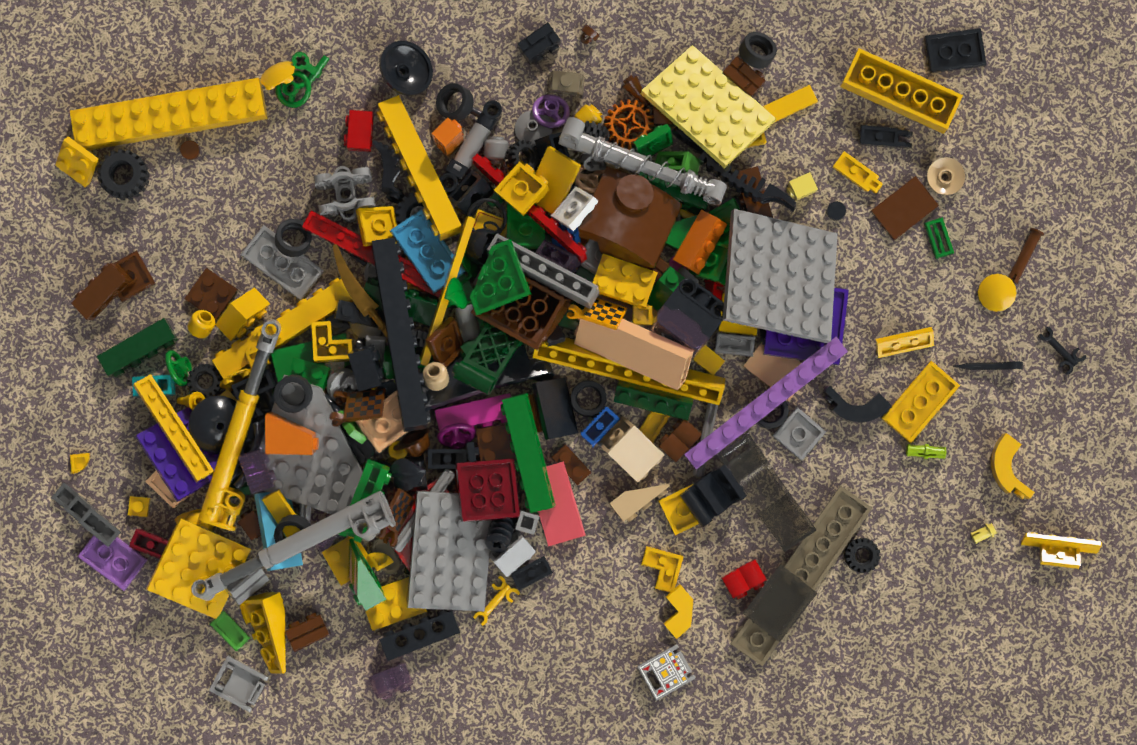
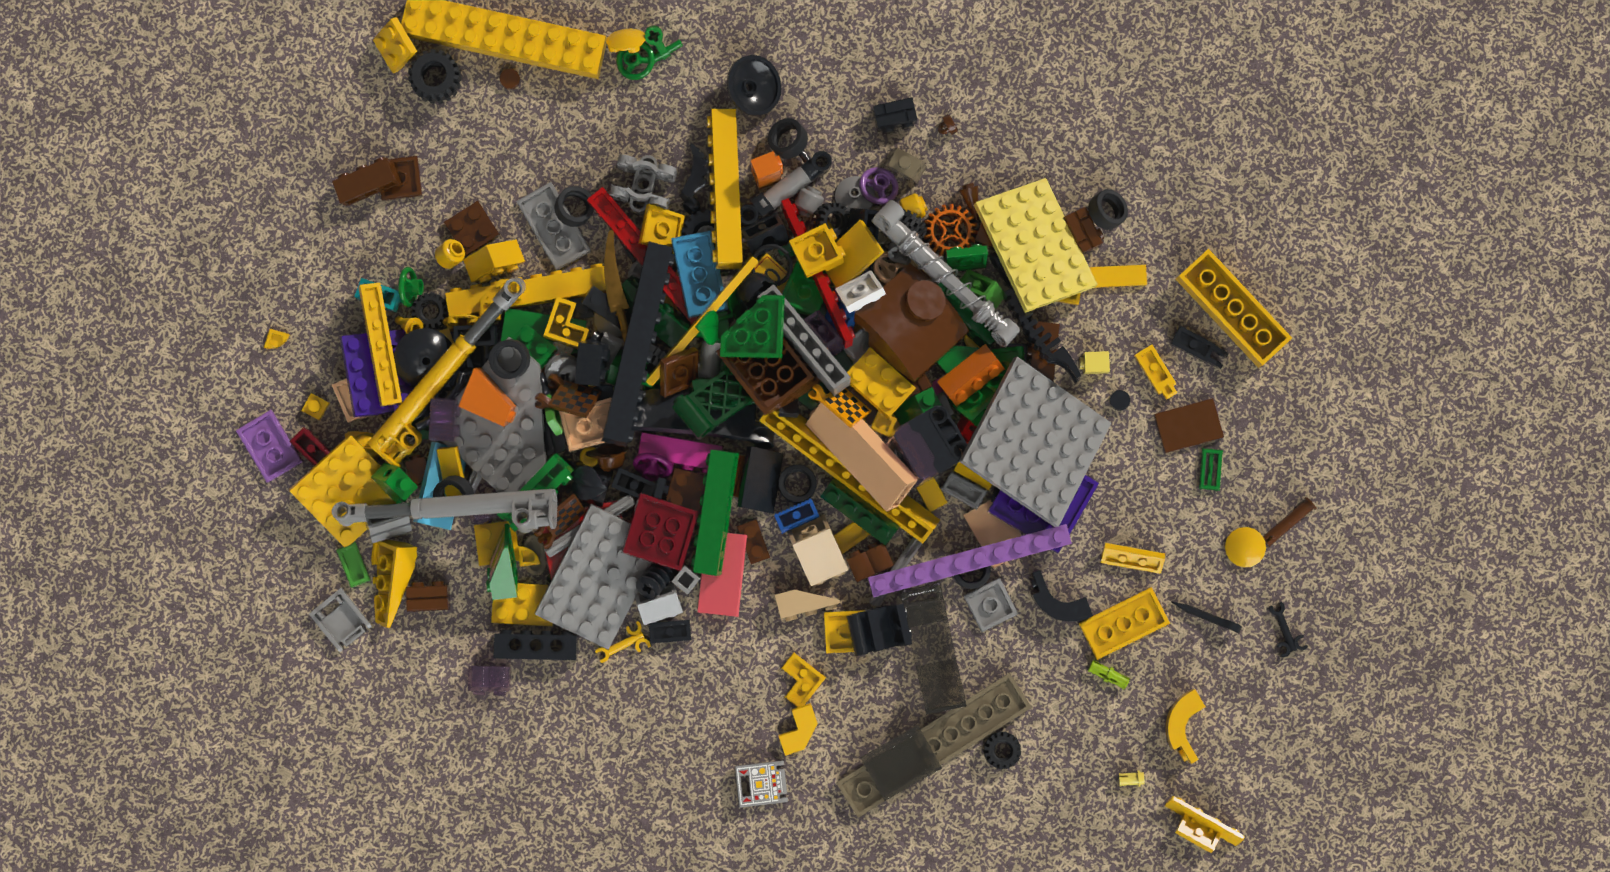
camera: 25 degrees right, 0 degrees up
(86, 514) = (261, 393): dark grey slope -> none
(137, 347) = (378, 251): dark green brick -> none
(239, 544) = (396, 484): none -> green torso
(359, 130) = (683, 128): red brick -> none
(435, 376) = (655, 399): tan head -> none
(743, 579) = (876, 724): red brick -> none
(952, 169) = (1253, 411): tan dish -> none
(955, 50) = (1305, 290): black tile -> none

